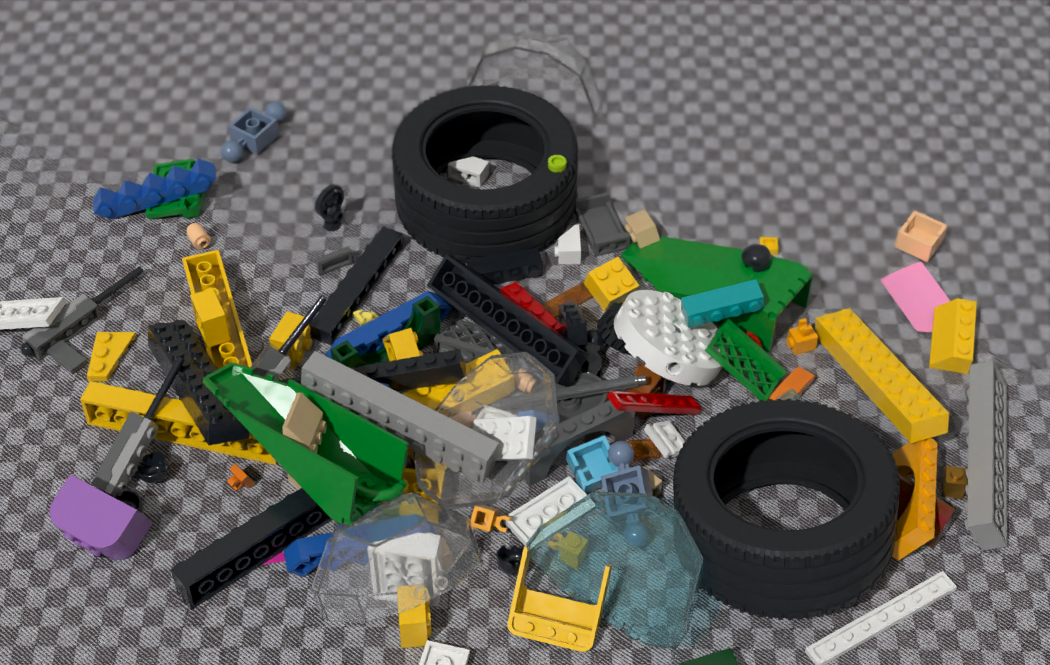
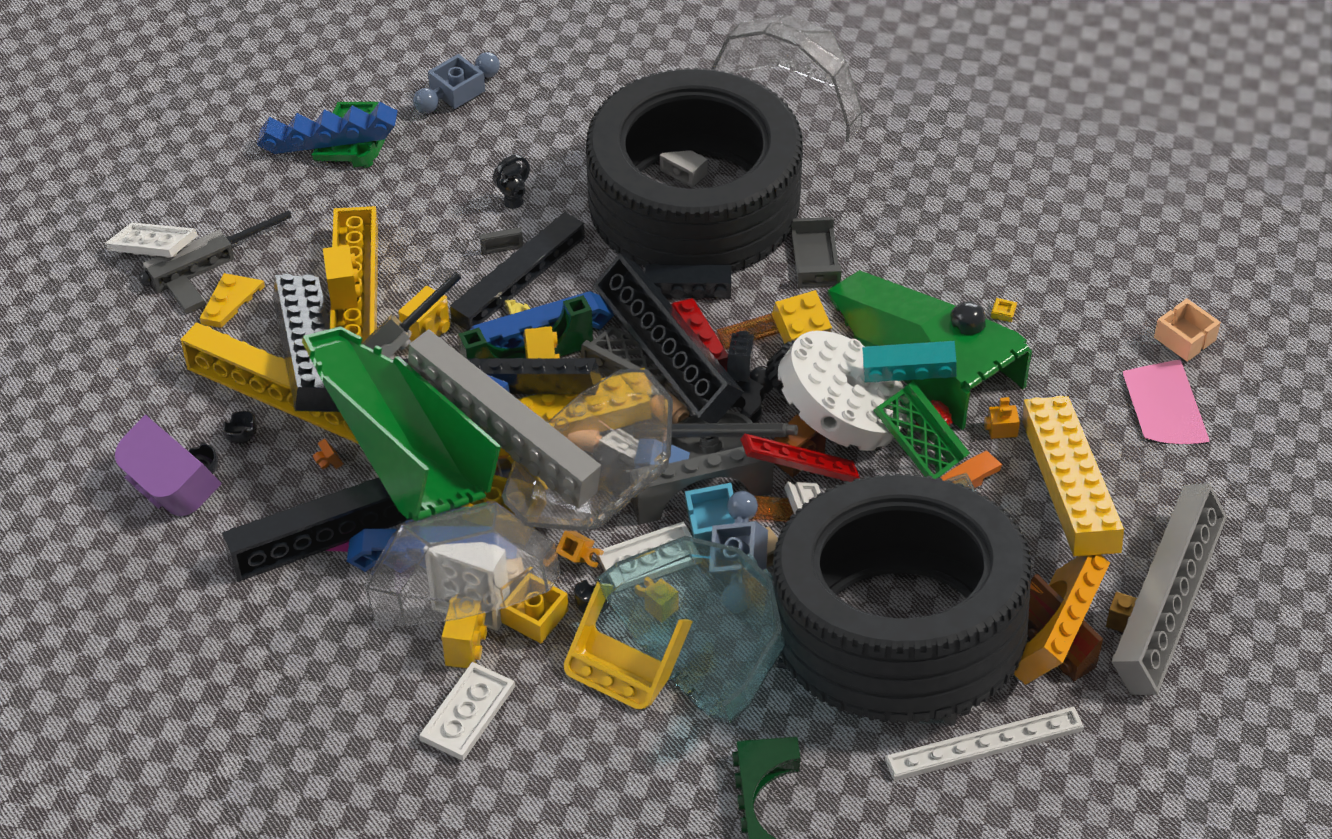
camera: 15 degrees right, 0 degrees up
(132, 443) = (222, 395): piece -> none
(198, 236) = (361, 188): light nougat brick -> none
(305, 423) = (396, 405): tan slope -> none
(378, 495) = (453, 483): green plant -> none
(474, 588) = (537, 615): none -> yellow brick
(513, 434) = (618, 461): white plate -> none
(557, 163) = (767, 172): lime tile -> none
(569, 247) = (769, 271): white slope -> none
(641, 229) = (857, 265): tan brick -> none
(953, 336) = (1184, 449): yellow slope -> none

